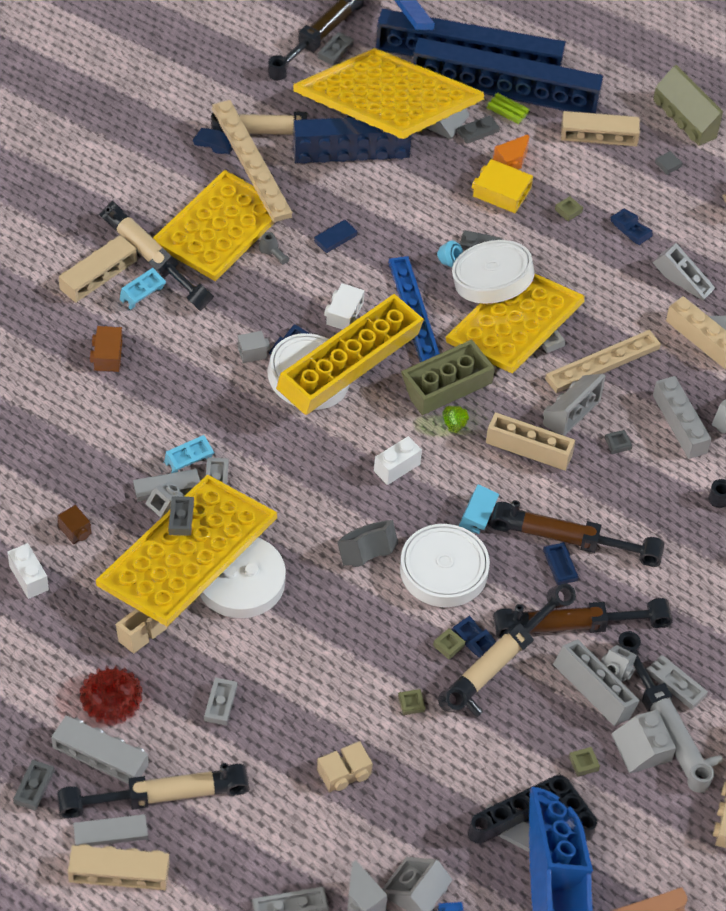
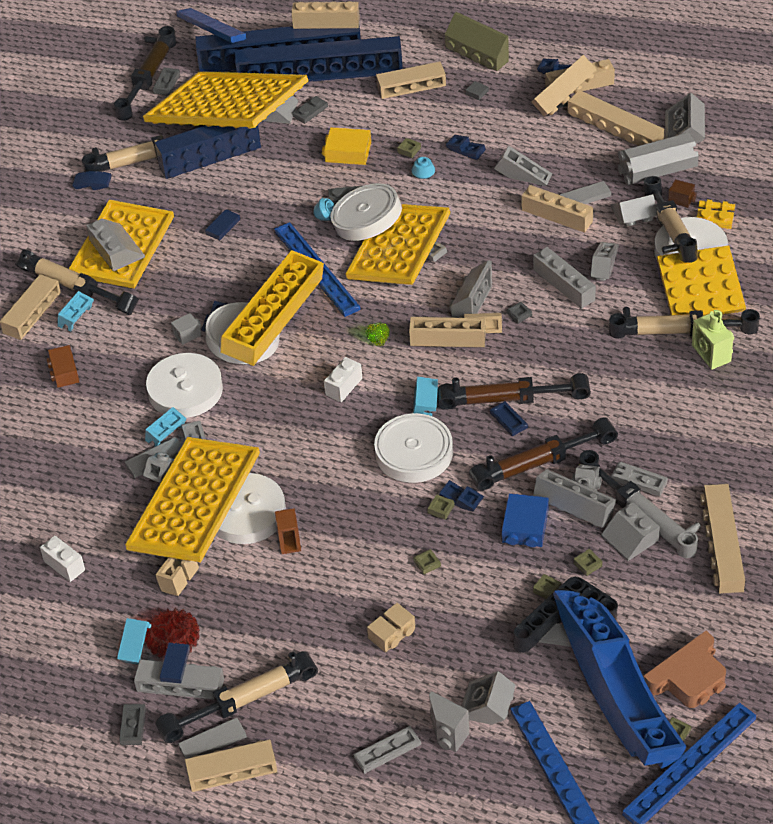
camera: 10 degrees left, 5 degrees down
(65, 691) = (133, 641): none -> medium azure hinge
(74, 524) = (88, 510): reddish brown brick -> none
(100, 732) = (174, 663): none -> dark blue tile
(181, 515) = (179, 473): dark grey plate -> none
(210, 224) = (113, 243): none -> light grey slope
(220, 701) = (266, 610): light grey plate -> none
(227, 411) = (184, 382): none -> white brick
(252, 161) = (130, 185): tan plate -> none
(269, 245) = (169, 247): dark grey bar -> none
(274, 619) = (288, 531): none -> dark orange piece
(344, 306) = (252, 275): white brick -> none
(367, 542) = (343, 449): dark grey brick -> none
(447, 377) = (360, 303): olive slope -> none
(509, 106) = (328, 86): lime tile -> none
(512, 152) = (345, 117): orange slope -> none
(513, 640) = (492, 489): black piece -> none
(528, 775) = (546, 586): none -> olive plate
(530, 27) = (325, 15): none -> tan brick
(534, 690) = (525, 520): none -> blue brick
(575, 237) = (423, 168): none -> medium azure cone
(583, 445) = (493, 321): none -> tan plate
(603, 360) = (486, 251): tan plate -> none

